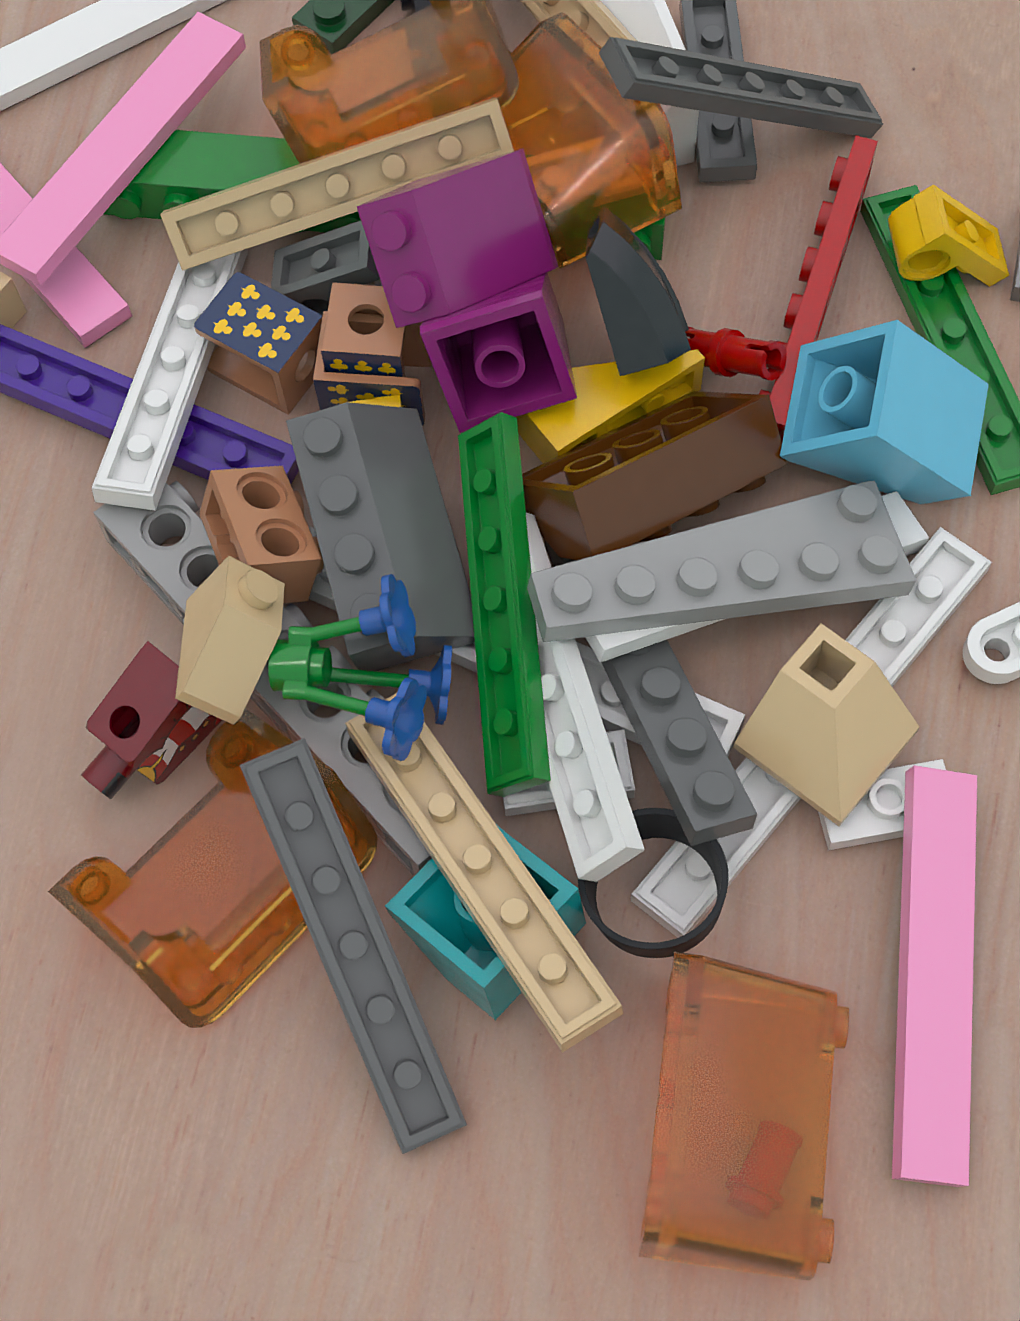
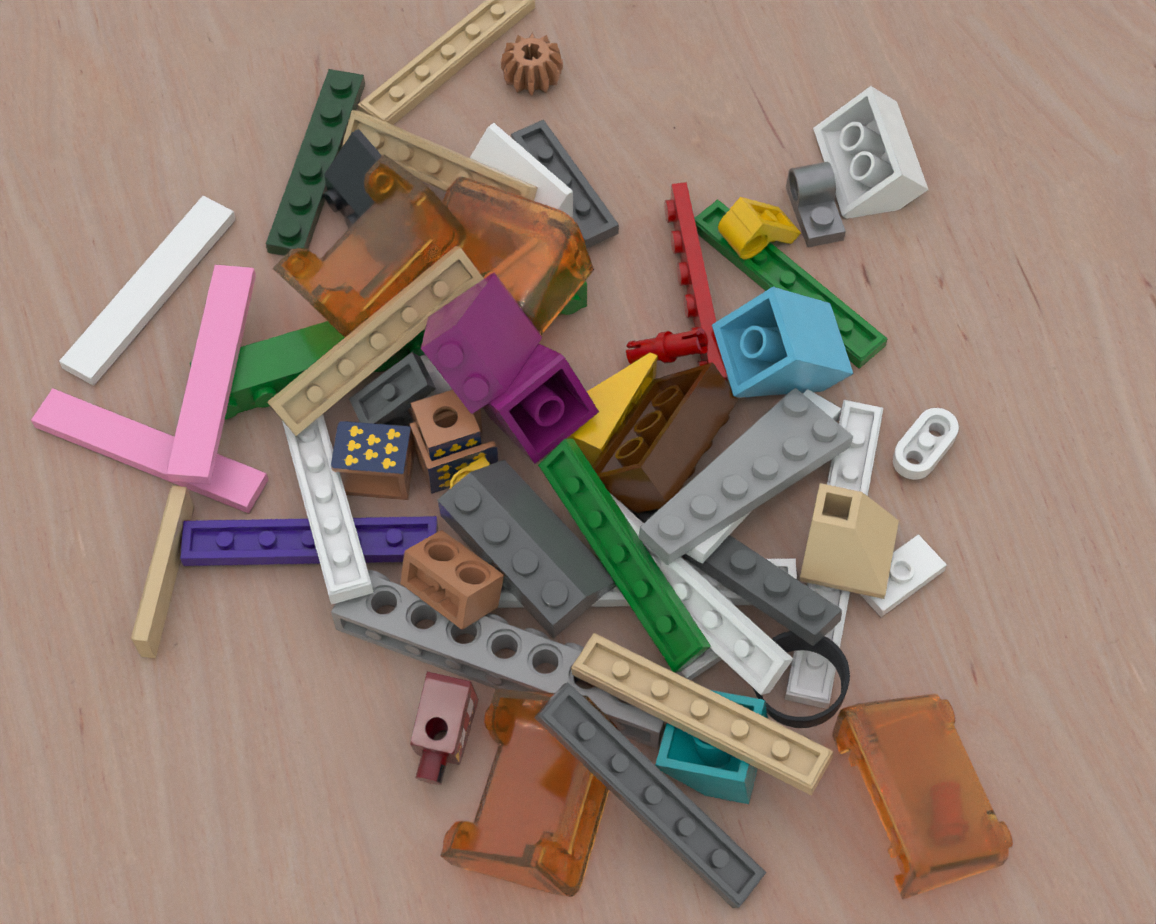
camera: 30 degrees left, 5 degrees down
(228, 638) = (477, 646): tan slope -> none
(301, 666) = (530, 644): plant -> none
(634, 297) = (600, 337): black slope -> none
(738, 88) = (595, 183): dark grey tile -> none
(935, 979) = (982, 659): bright pink tile -> none

